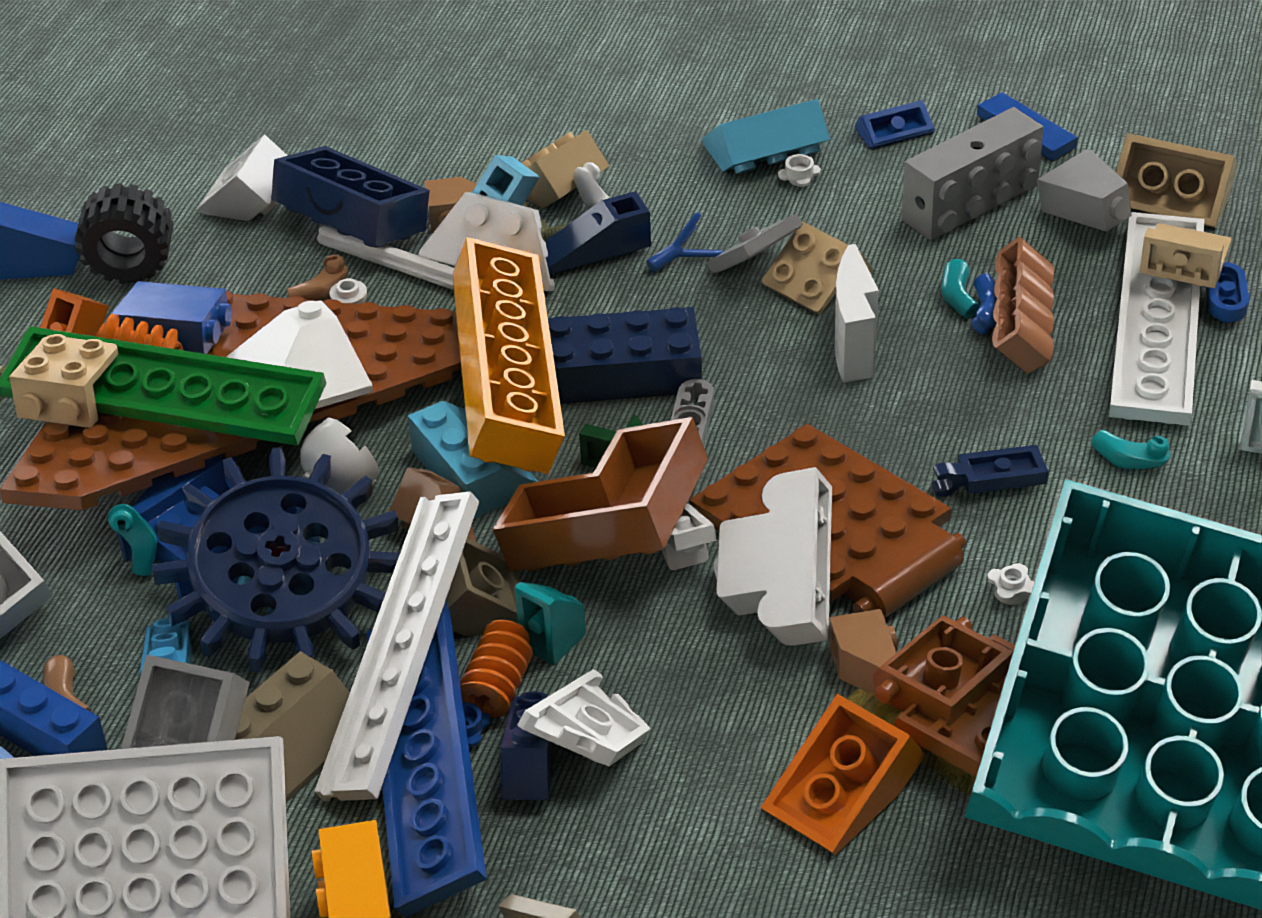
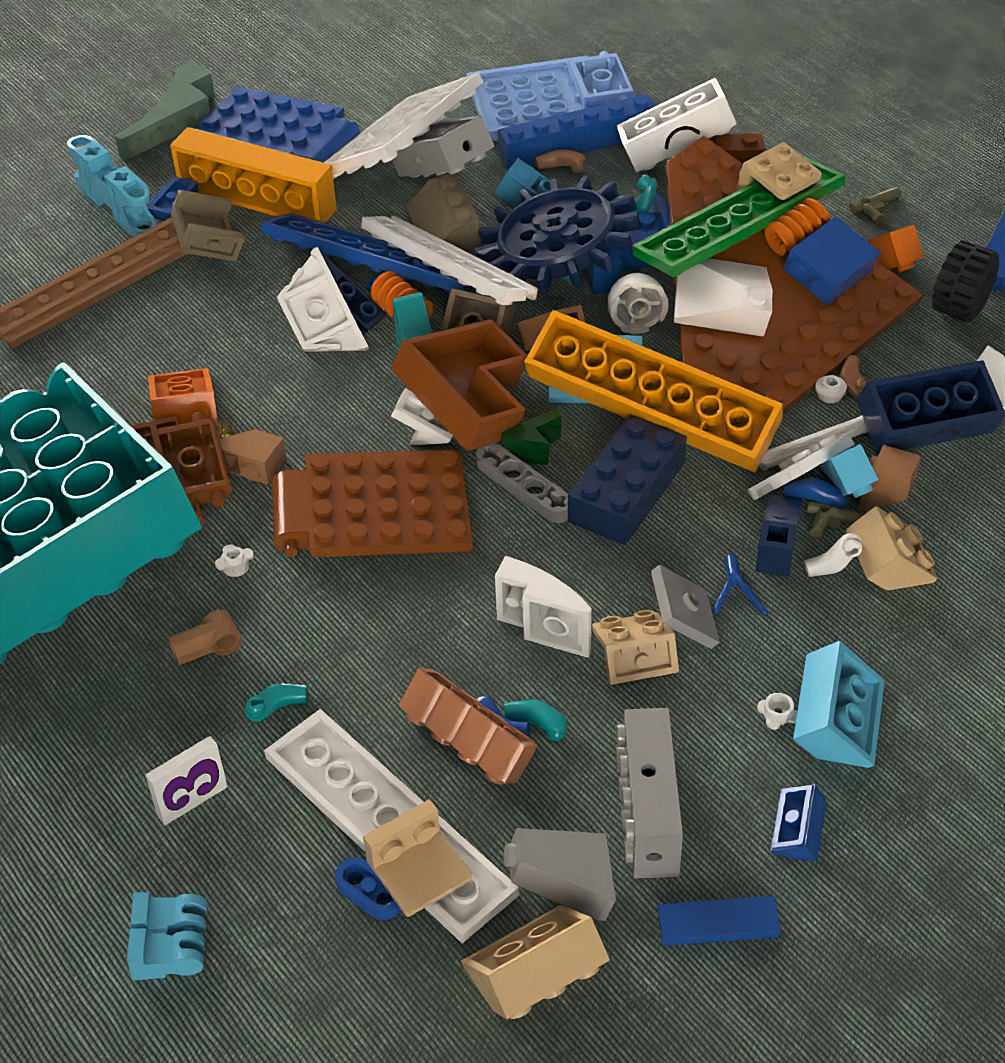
camera: 125 degrees right, 5 degrees up
(781, 559) = (342, 434): white brick -> none
(991, 471) = (331, 610): dark blue plate -> none

